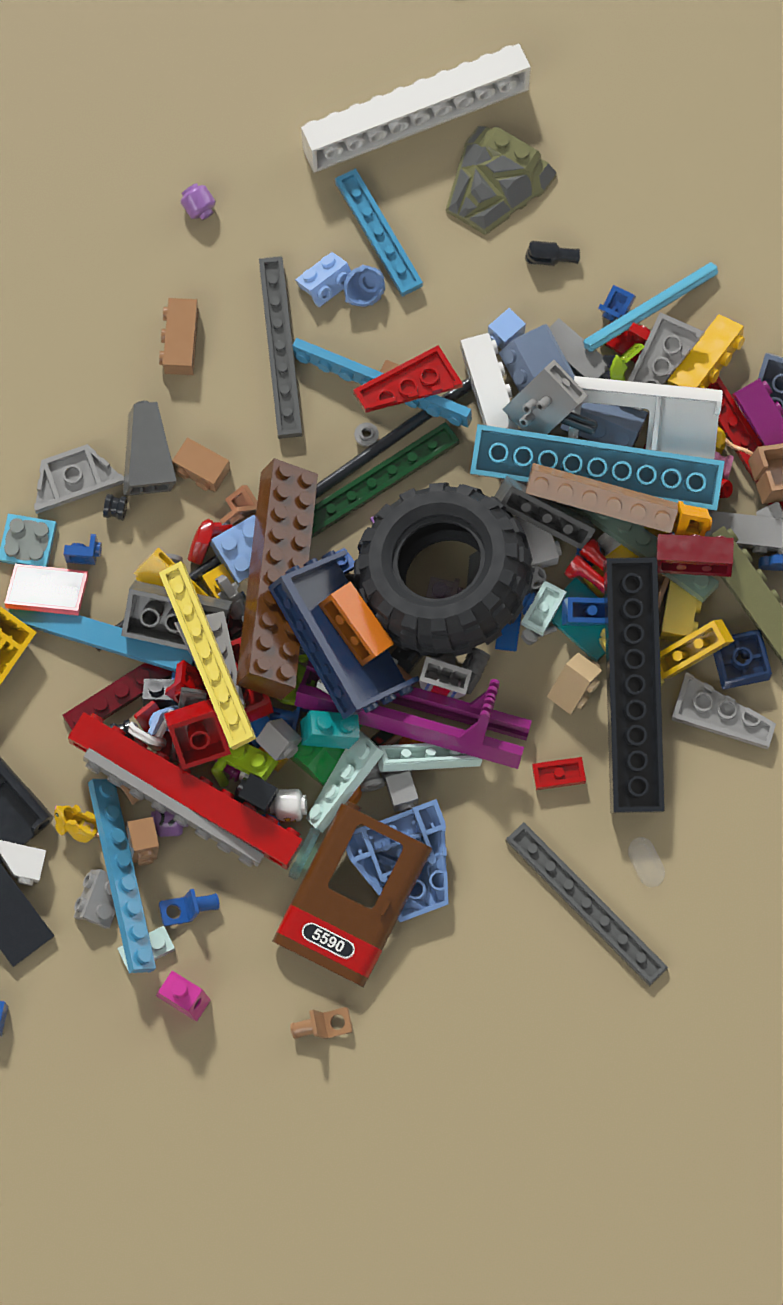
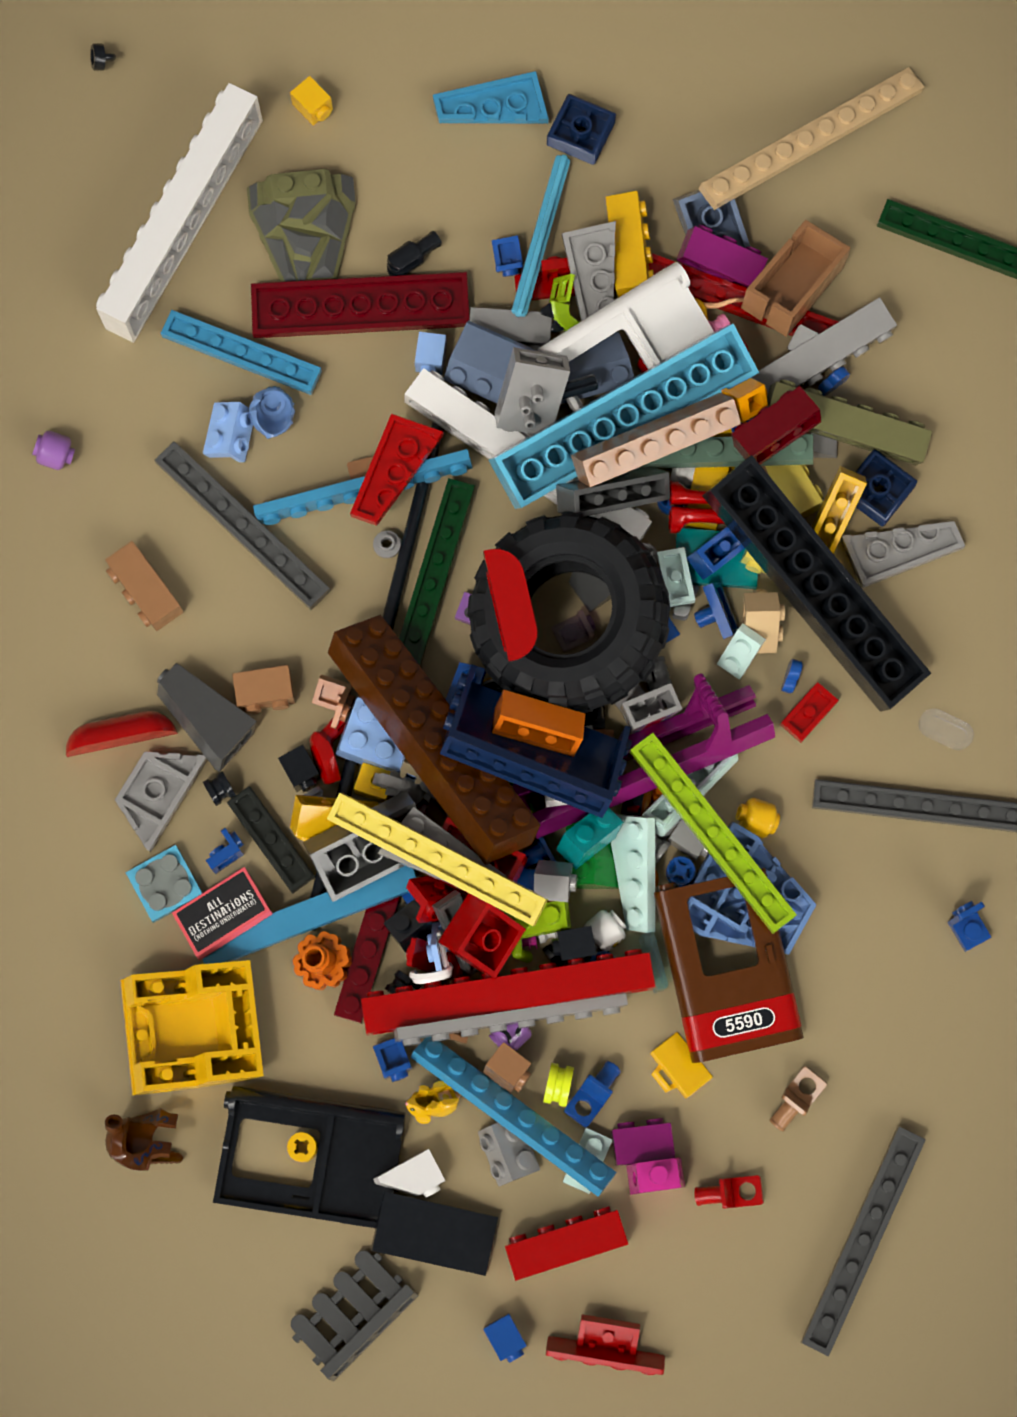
camera: 40 degrees left, 5 degrees up
(53, 1078) = (606, 1344): none -> red bracket
(74, 776) = (392, 1060): none -> blue bracket
(82, 419) = (119, 732): none -> red brick
(82, 989) = (567, 1244): none -> red brick
(85, 673) = (322, 961): none -> orange plant
(120, 566) = (271, 839): none -> pearl dark grey tile
(169, 880) = (558, 1084): none -> neon yellow wheel
(179, 535) = (300, 769): none -> black brick
(192, 965) = (642, 1142): none -> magenta brick
(221, 1047) = (729, 1193): none -> red bracket
(262, 931) = (676, 1062): none -> yellow piece
(284, 1156) = (863, 1241): none -> dark grey plate
(376, 803) = (684, 868): none -> blue wheel
(401, 525) = (511, 603): none -> red brick
(413, 793) = (713, 833): none -> lime plate
(460, 814) = (758, 817): none -> yellow head
(486, 261) = (359, 305): none -> dark red plate
(544, 692) = (741, 651): none -> light aqua plate
(544, 1005) = (968, 926): none -> blue bracket
(554, 654) = (718, 611): none -> blue tile
(567, 738) = (791, 676): none -> blue tile
(571, 100) = (311, 101): none -> yellow brick
(702, 196) = (499, 101): none -> dark azure wing
(726, 601) = (824, 447): none -> light grey slope
(744, 243) = (570, 118): none -> dark blue brick

